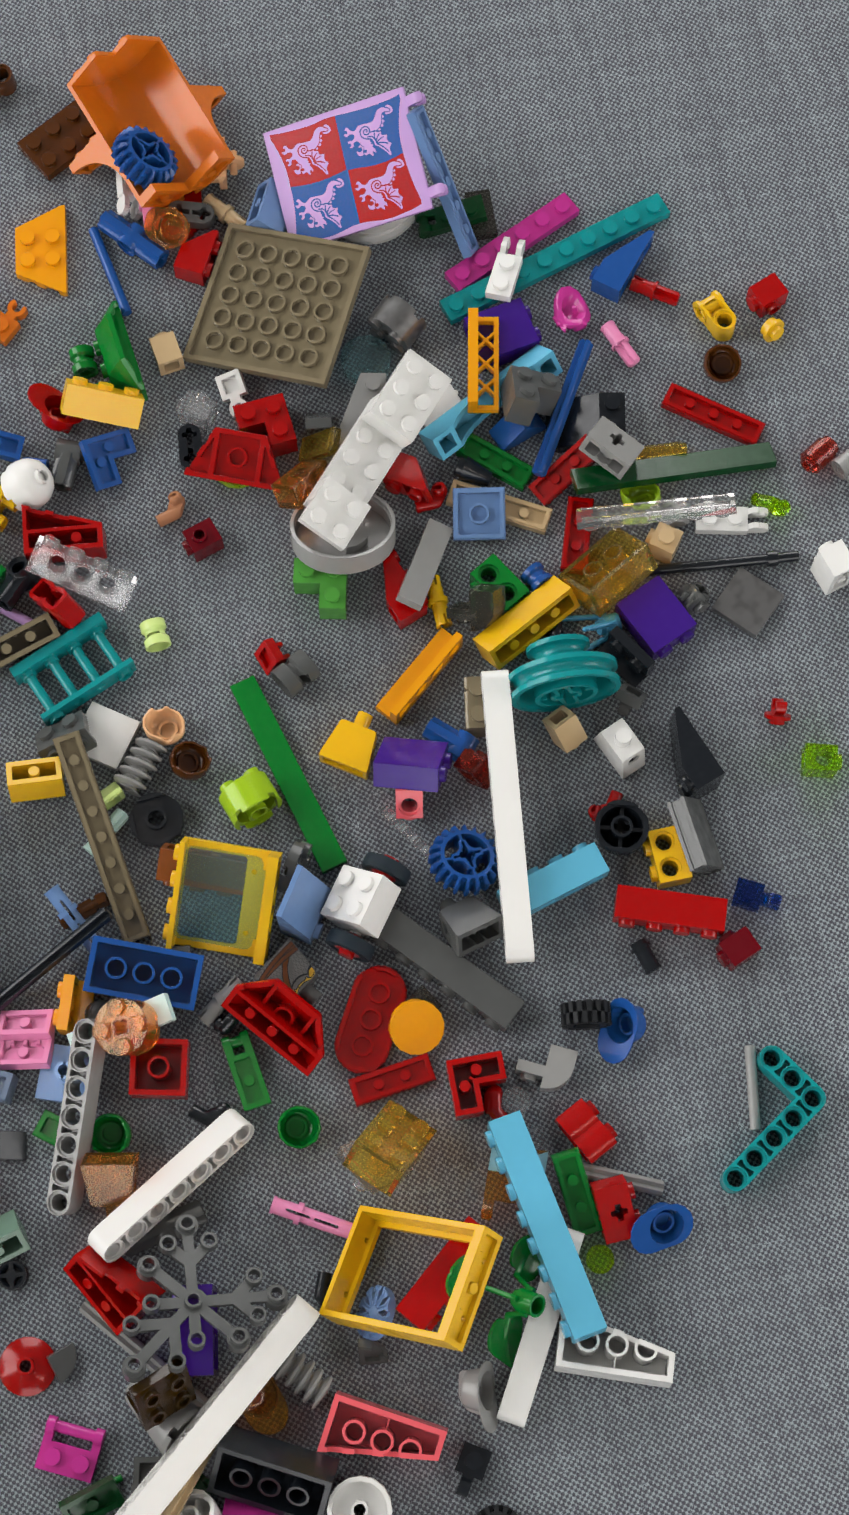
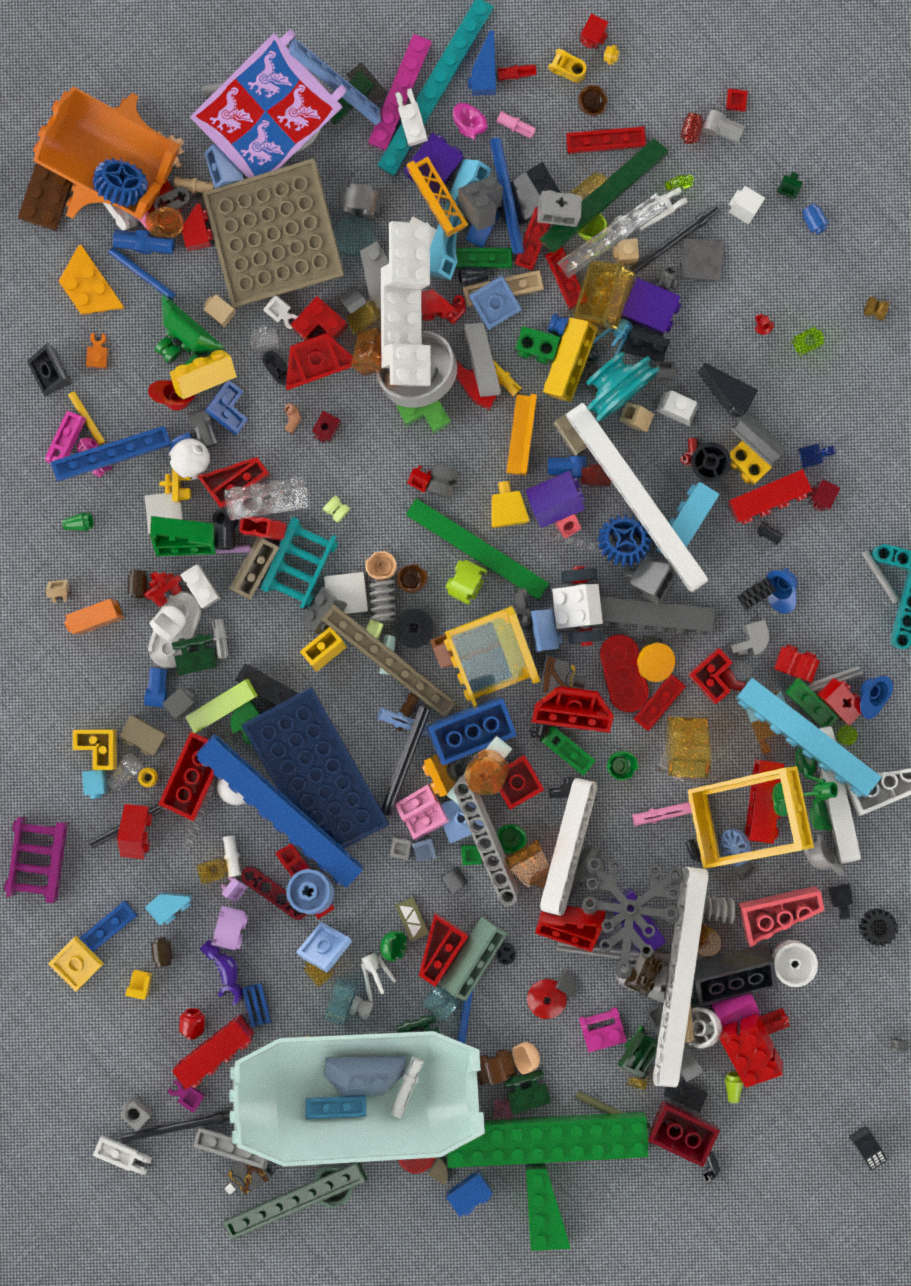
camera: 30 degrees left, 15 degrees up
(214, 1008) = (526, 716): light grey pin -> none
(484, 606) = (537, 368): clear smoke brick -> none

